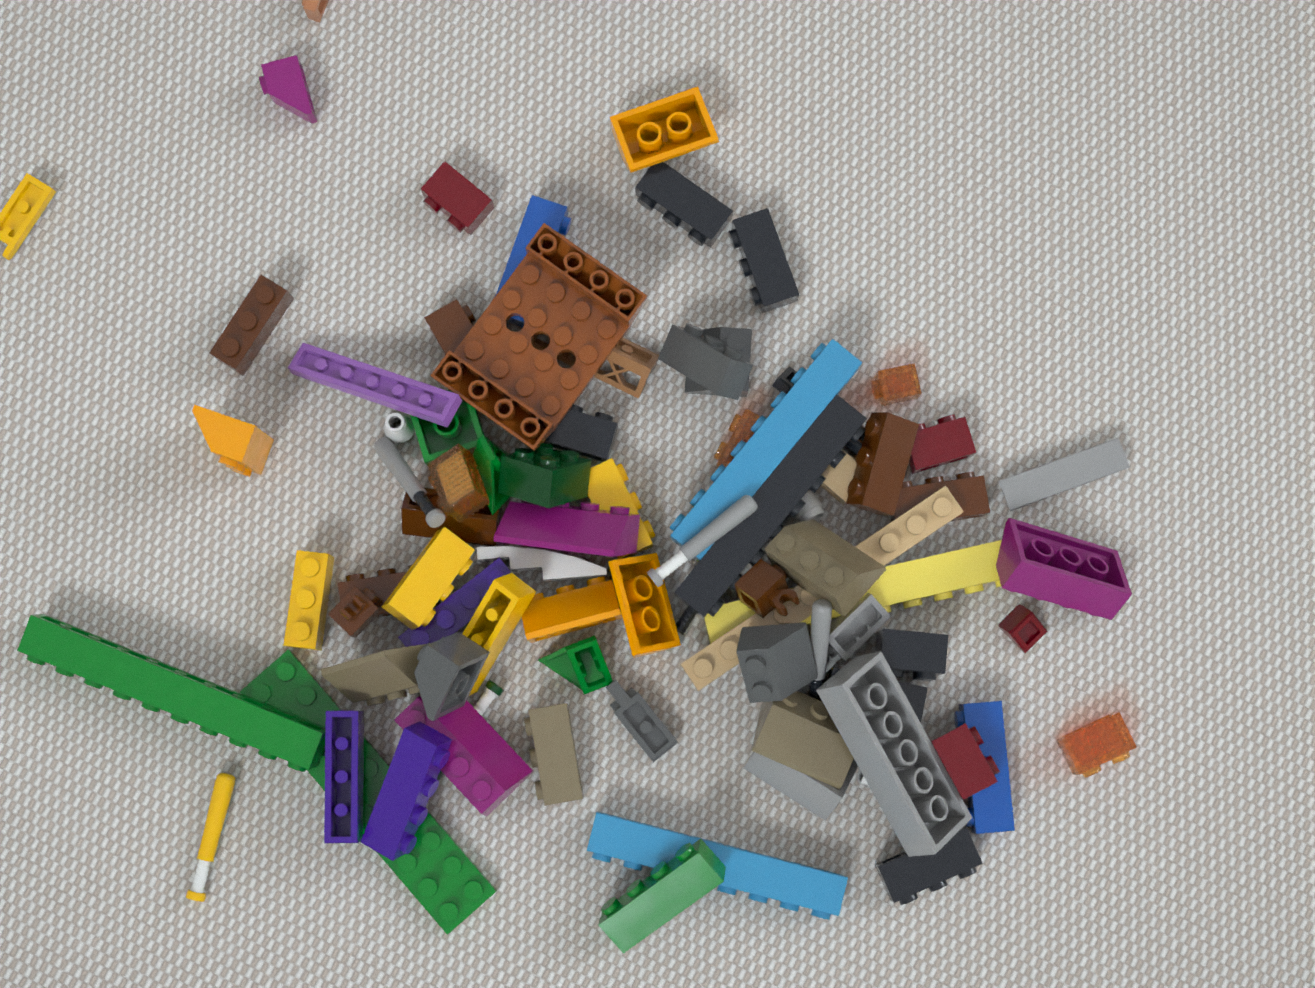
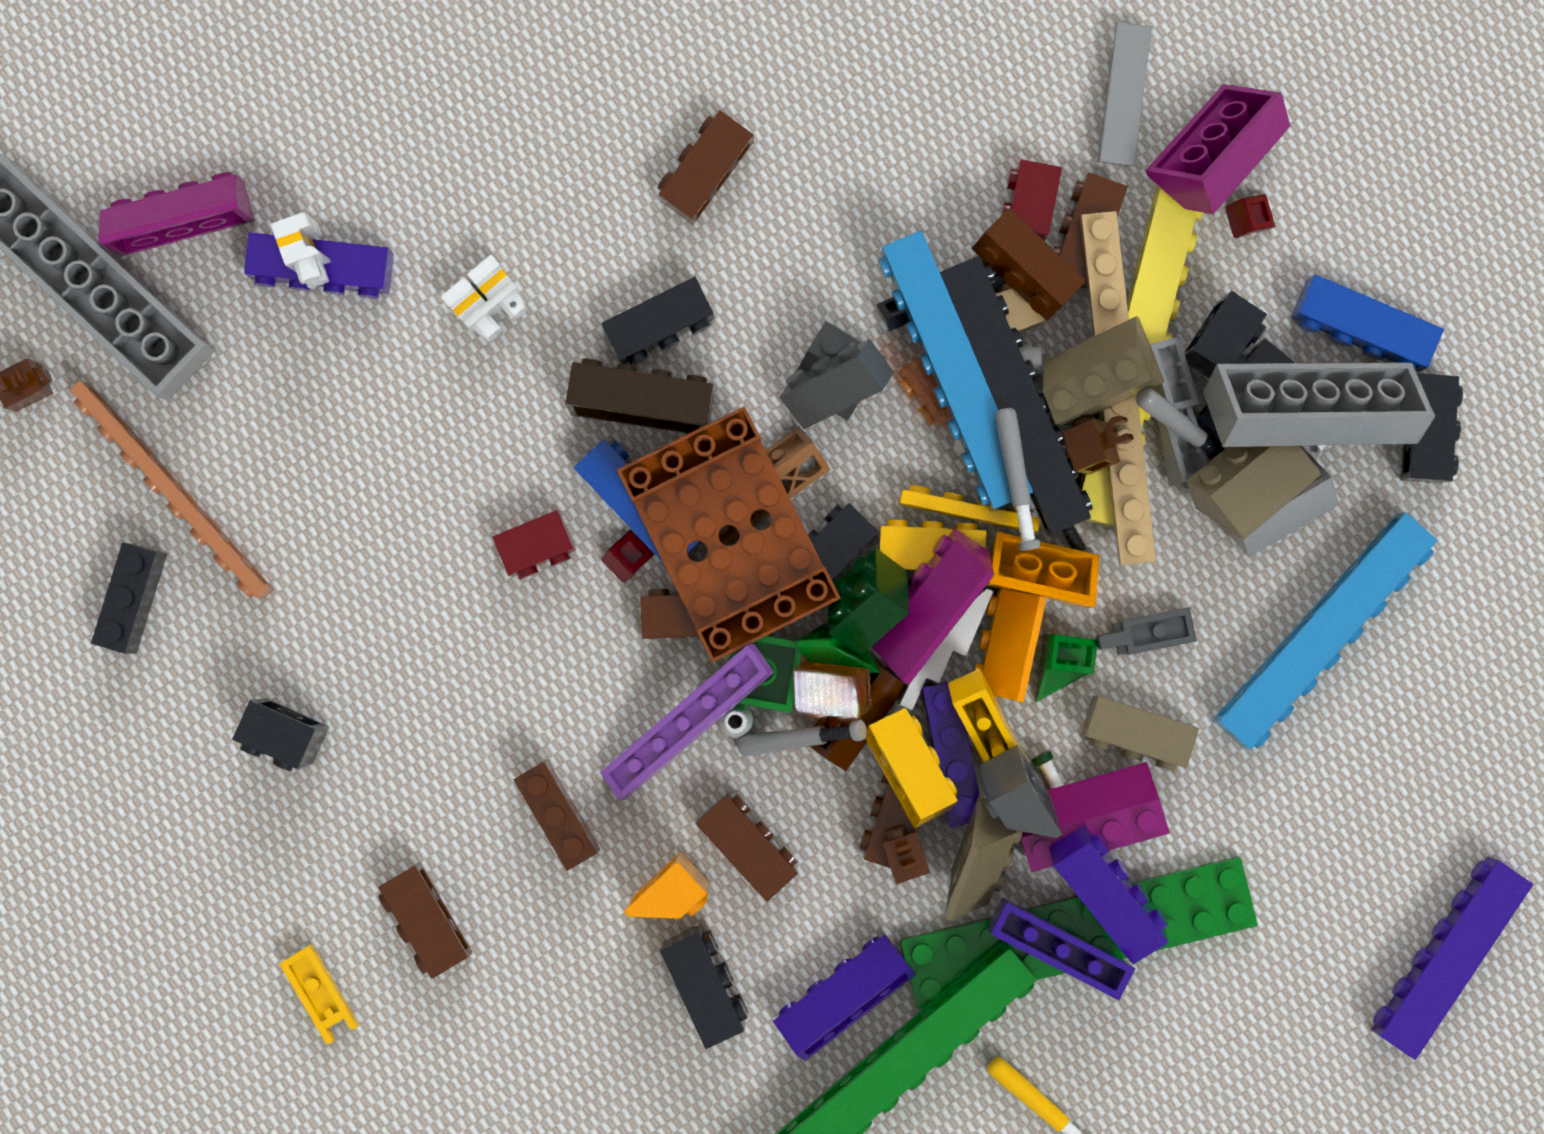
camera: 65 degrees left, 5 degrees up
(116, 266) = (424, 921): none -> reddish brown brick
(172, 508) = (705, 985): none -> black brick
(206, 79) = (280, 734): none -> black brick
(219, 625) = (843, 997): none -> dark purple brick
(288, 87) = (328, 655): magenta slope -> none
(303, 487) = (748, 846): none -> reddish brown brick
(309, 600) = (864, 896): yellow brick -> none
(484, 275) = (627, 556): none -> dark red slope
(613, 216) = (639, 397): none -> dark brown piece
(630, 59) = (497, 289): none -> white hips
(660, 510) = (954, 505): none -> yellow plate
(661, 895) = (1332, 699): brick -> none
(663, 129) = (578, 302): light orange slope -> none
(763, 261) = (758, 273): black brick -> none
(775, 660) = (1171, 470): dark grey slope -> none
(825, 176) = (705, 166): none -> reddish brown brick
(896, 385) = (952, 209): clear orange brick -> none
(965, 761) = (1357, 340): dark red brick -> none
(1096, 744) = (1400, 206): clear orange brick -> none

